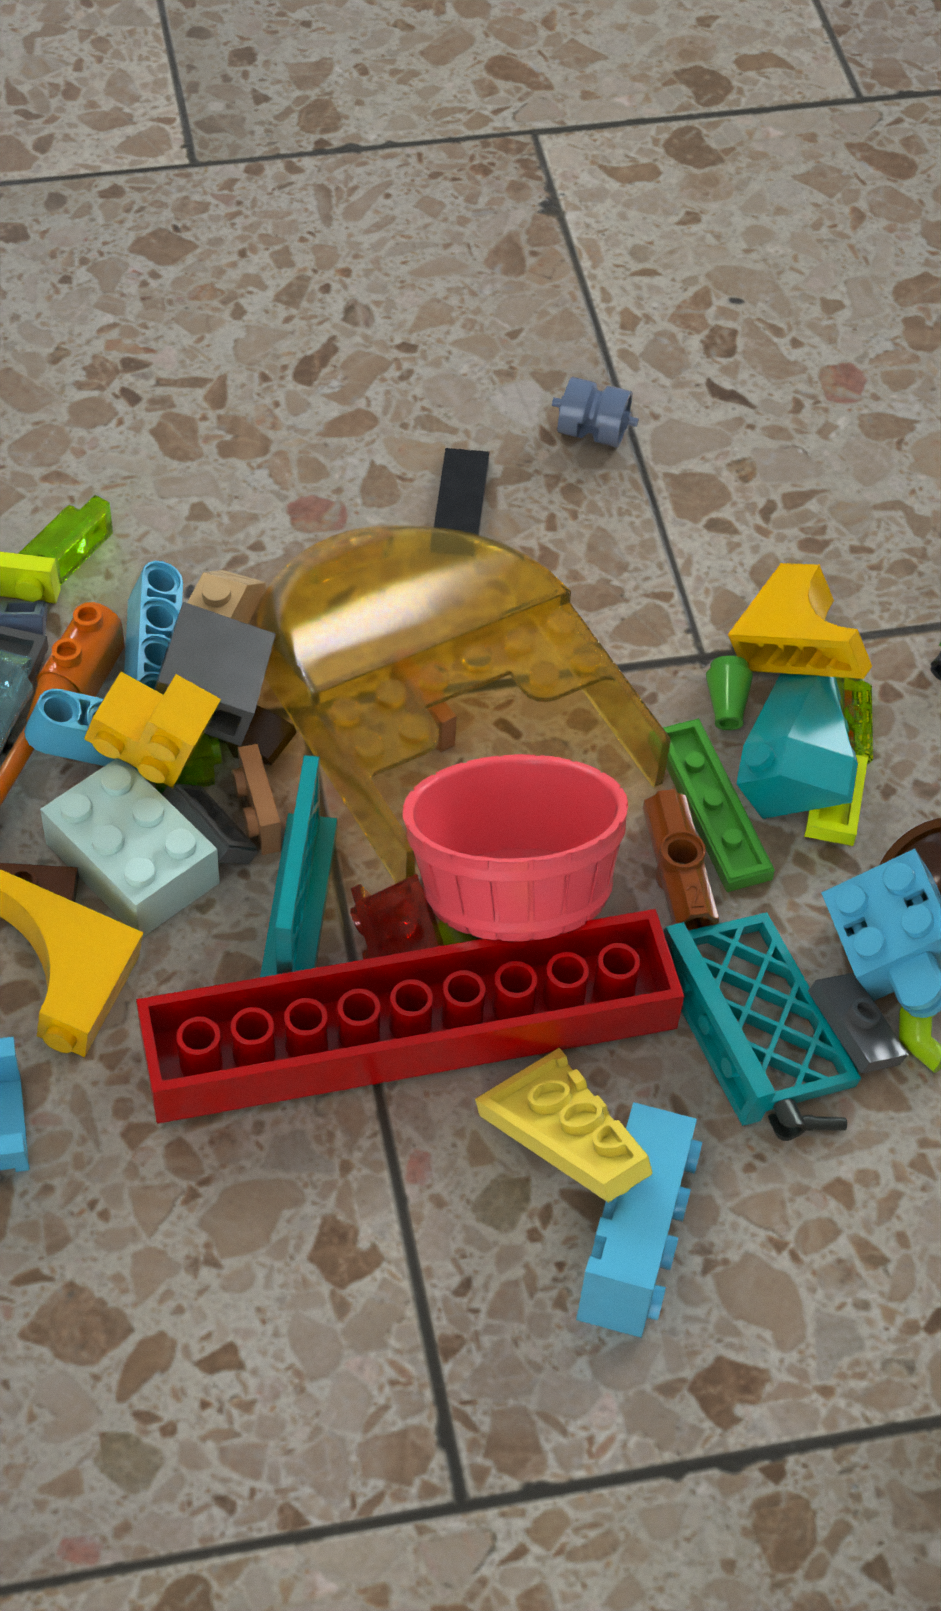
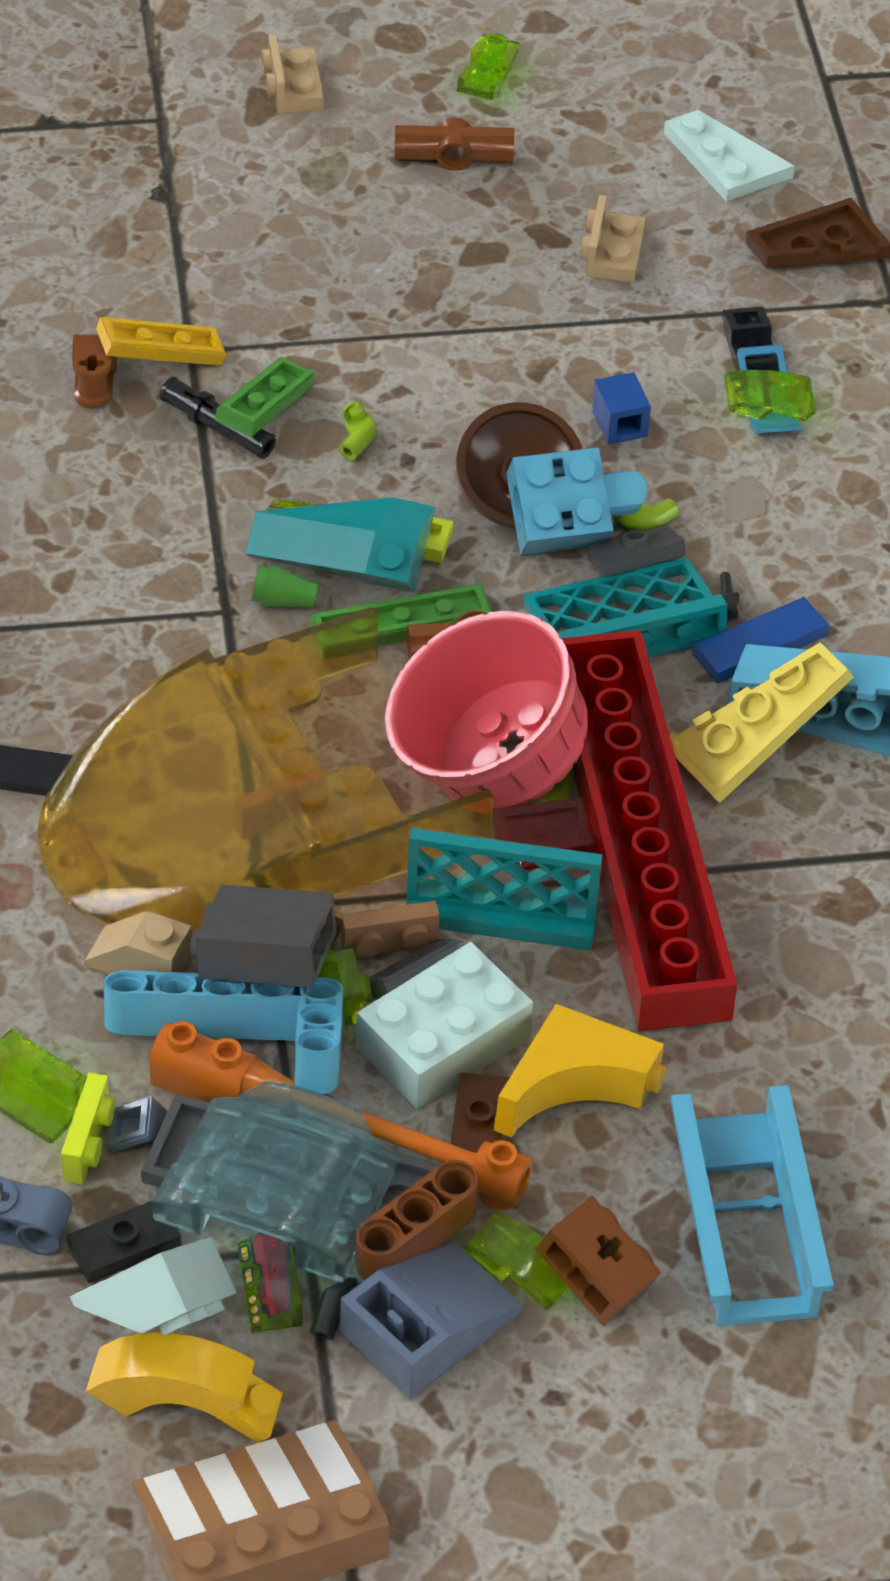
camera: 85 degrees left, 5 degrees down
(152, 728) = (359, 956): yellow brick -> none
(745, 1161) = (786, 626): none -> blue tile
(788, 628) = (231, 529): yellow arch -> none

